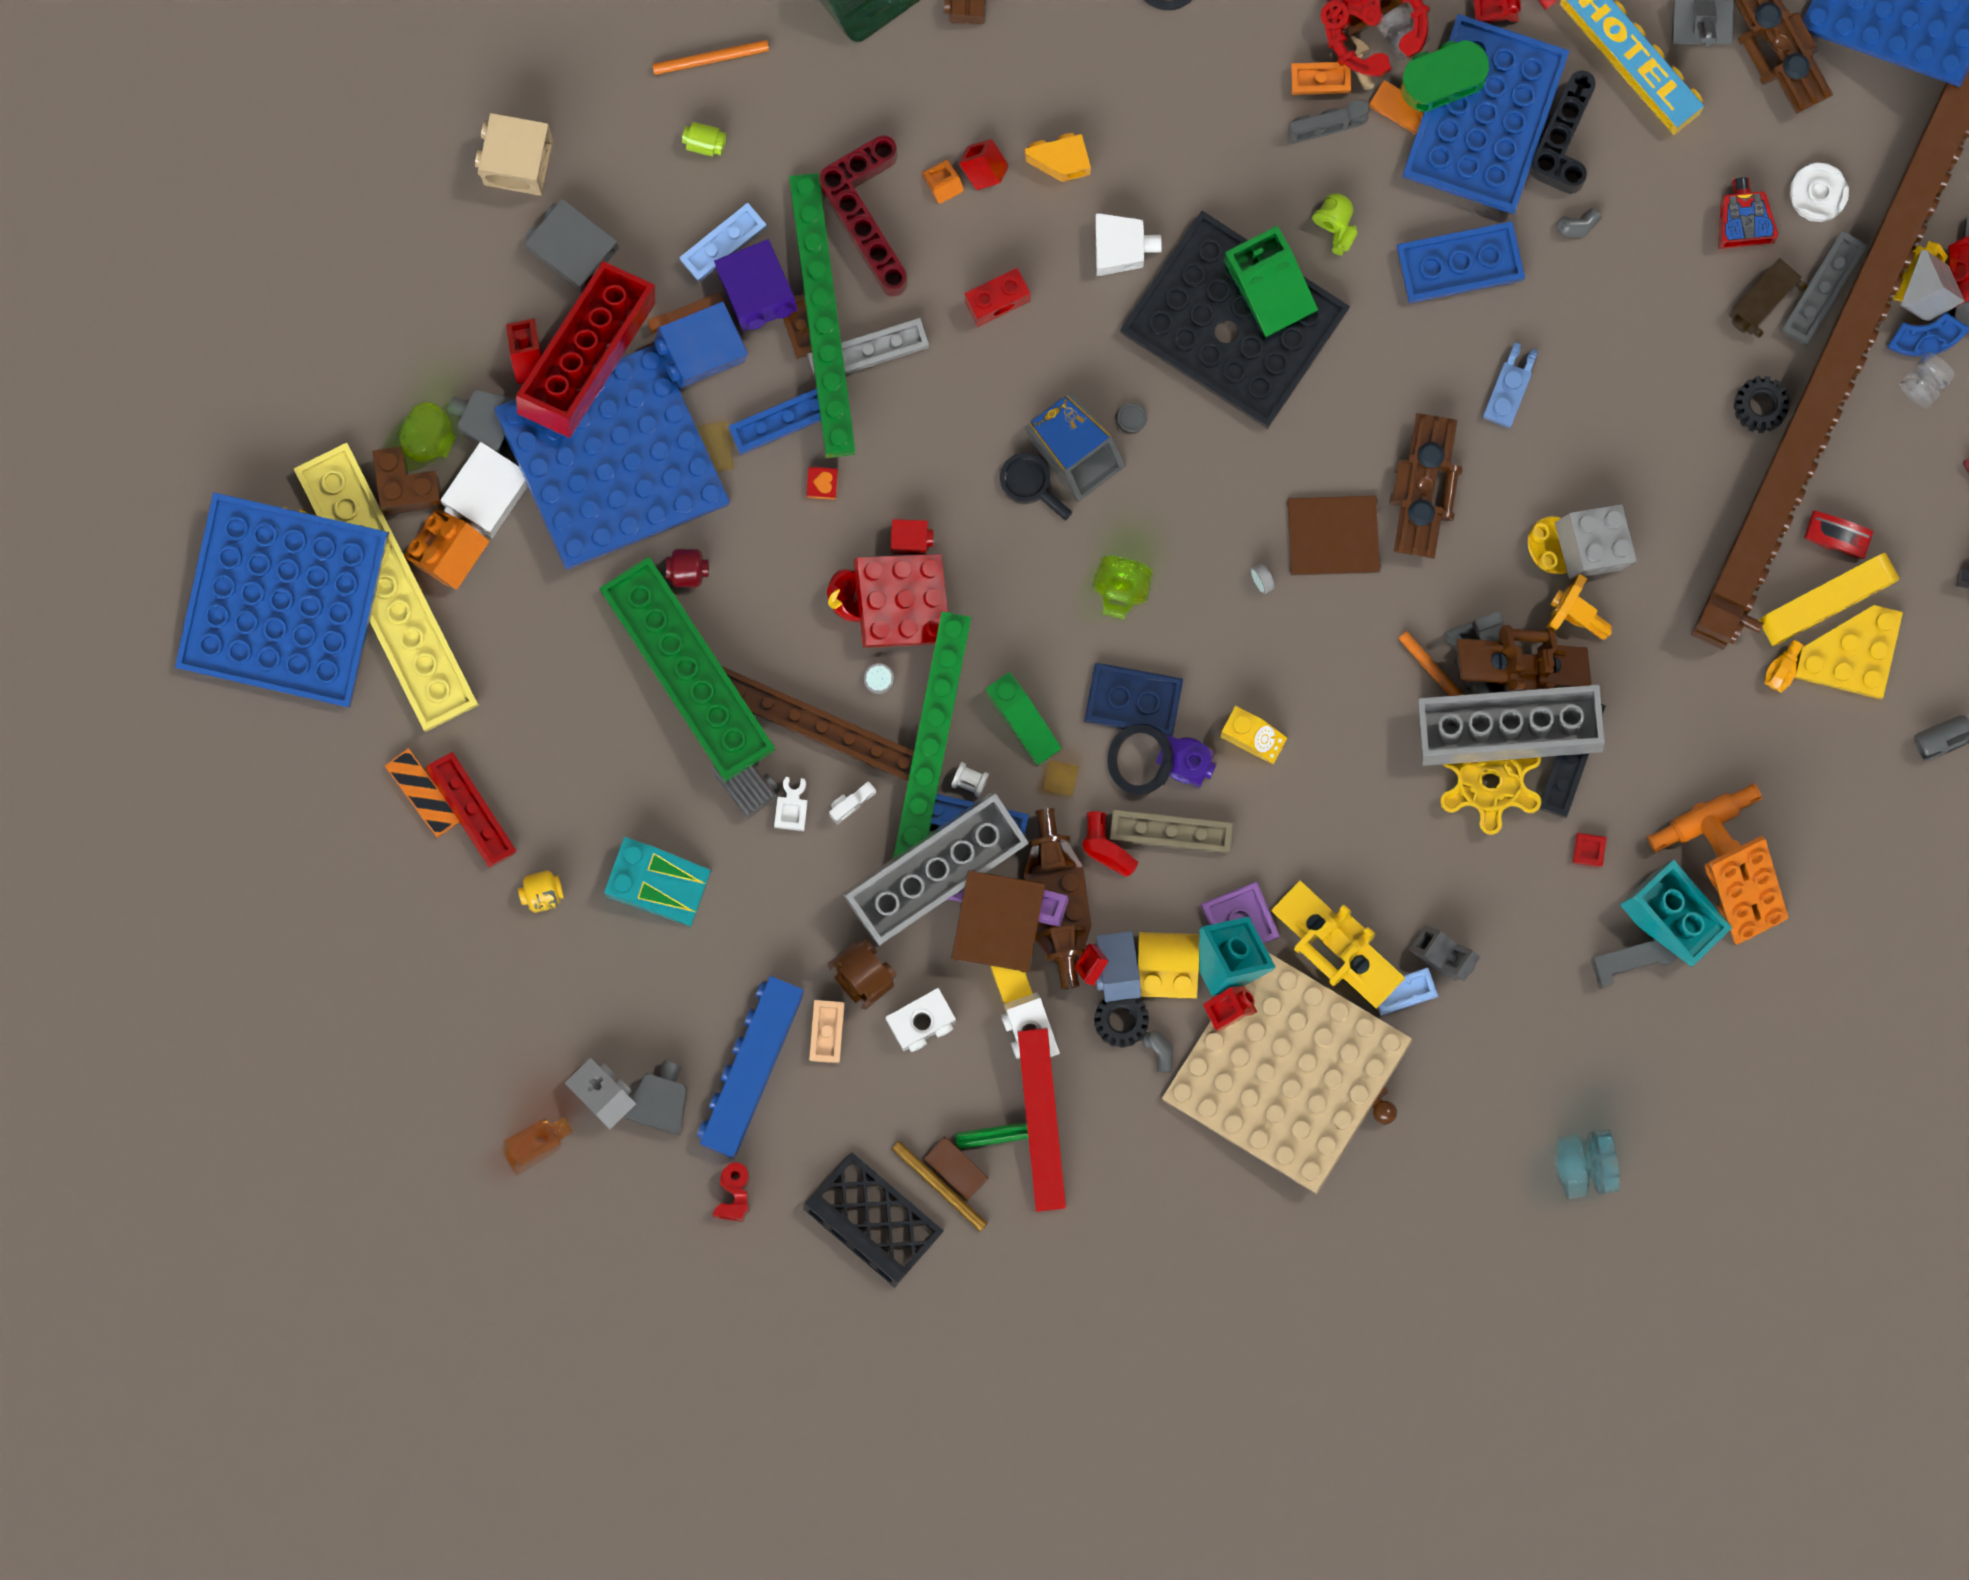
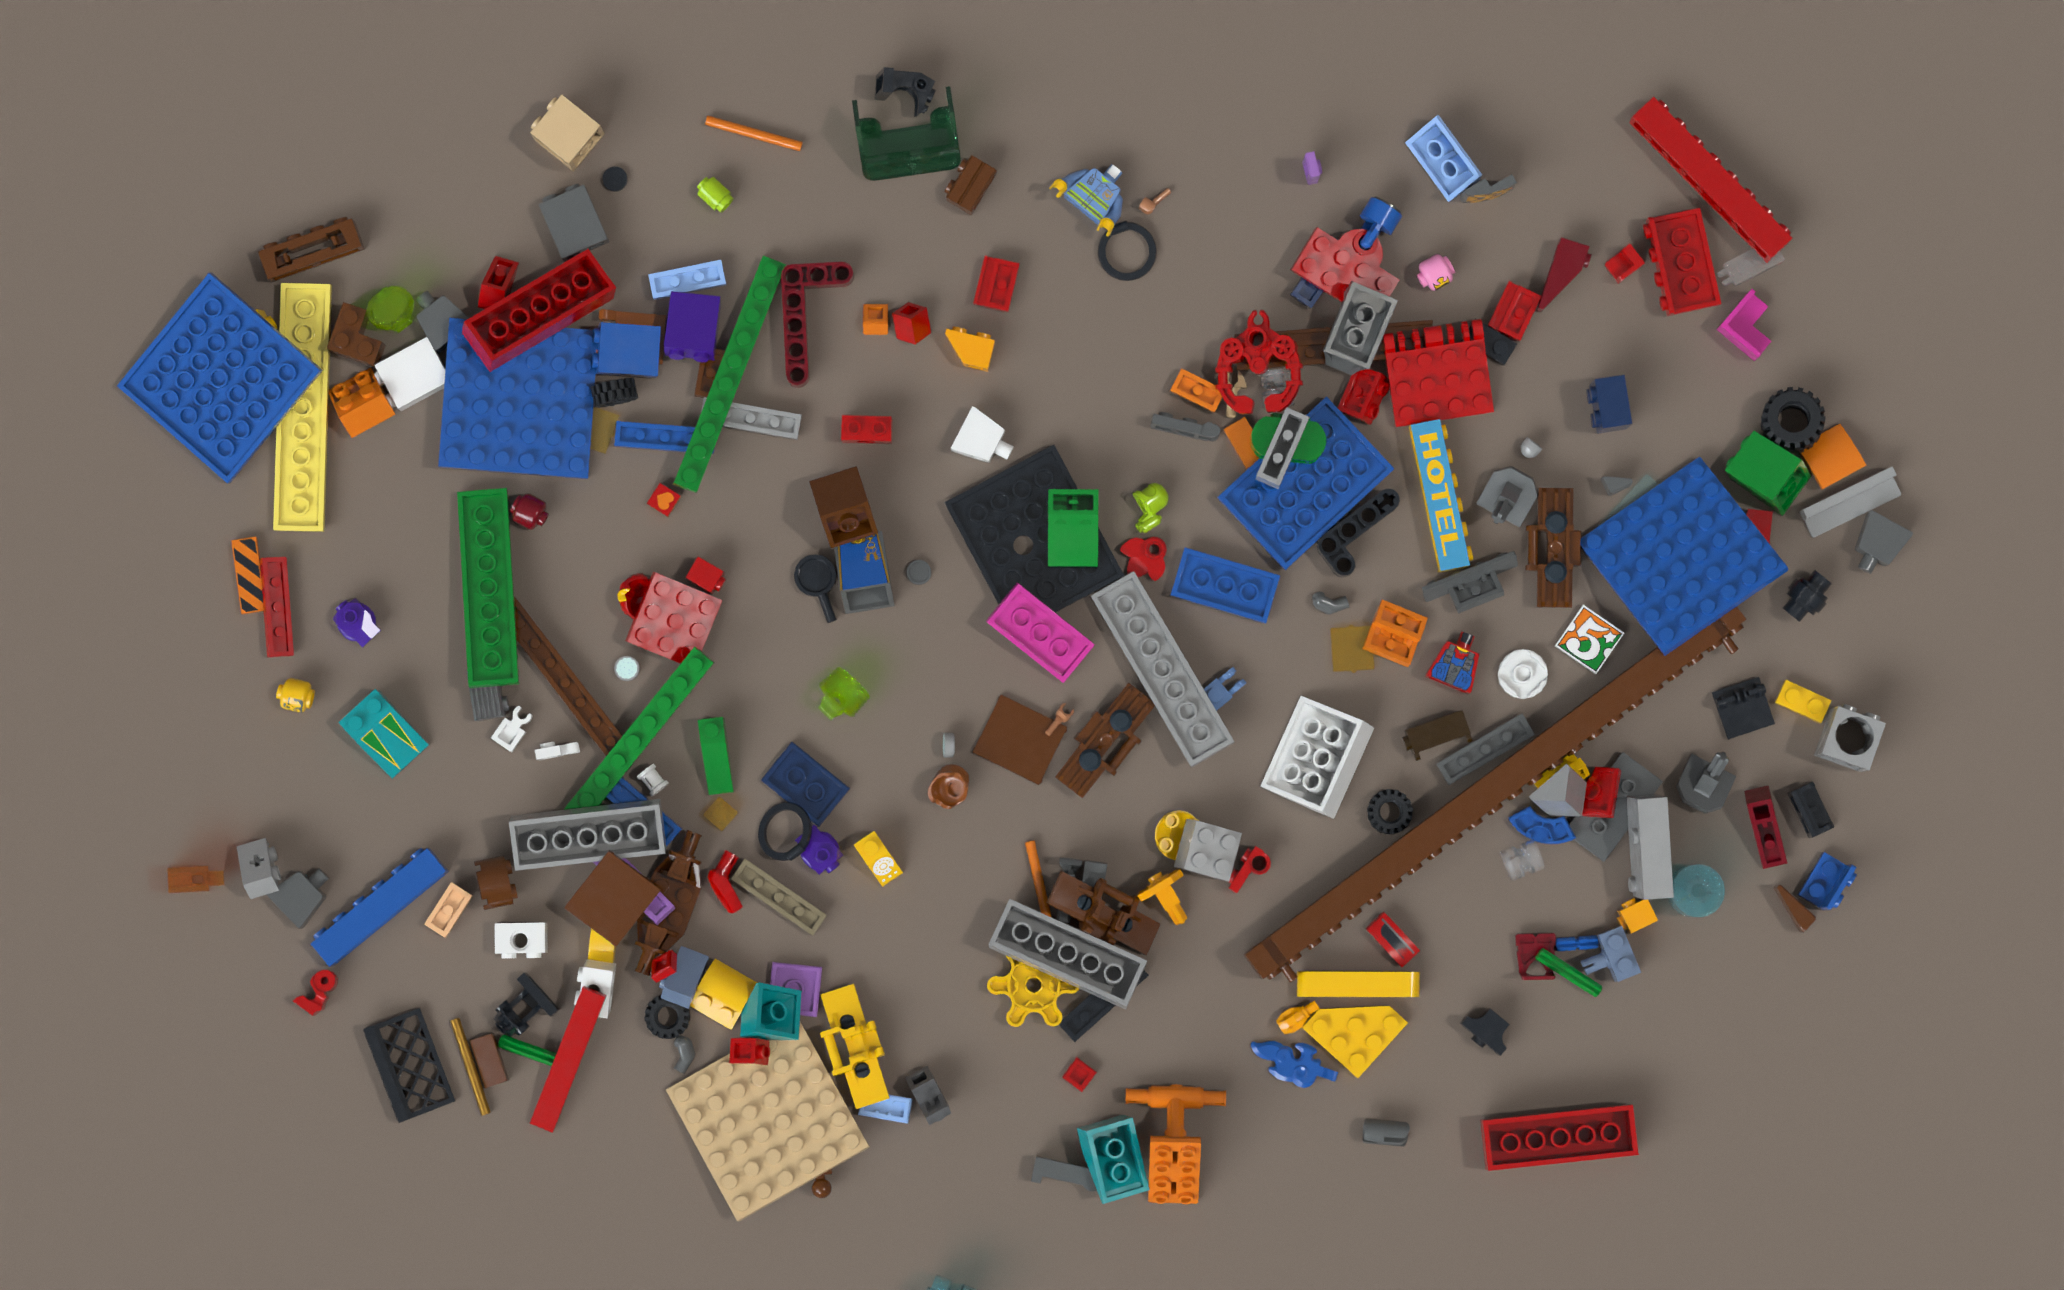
camera: 30 degrees right, 5 degrees up
(340, 394) = (317, 235): none -> reddish brown brick
(564, 780) = (356, 621): none -> dark purple hand
(589, 180) = (615, 179): none -> black piece
(710, 396) = (614, 392): none -> black tyre
(967, 1075) = (507, 1019): none -> black tile
(1019, 385) = (843, 507): none -> reddish brown brick
(1050, 78) = (996, 283): none -> red plate
(1288, 620) = (949, 786): none -> dark orange hair
(1295, 409) = (1040, 632): none -> dark pink plate
(1360, 282) = (1142, 560): none -> red plate
(1363, 487) = (1060, 717): none -> nougat hand
(1444, 380) = (1162, 669): none -> light grey plate
(1447, 80) = (1282, 448): none -> light grey brick
(1628, 259) = (1348, 651): none -> clear yellow piece
(1646, 540) = (1238, 877): none -> red plate
(1655, 387) = (1317, 756): none -> white slope
(1663, 219) = (1394, 633): none -> orange slope
(1717, 126) = (1472, 585): none -> dark grey bracket
(1803, 727) = (1289, 1069): none -> blue piece
(1867, 120) = (1589, 639): none -> tile

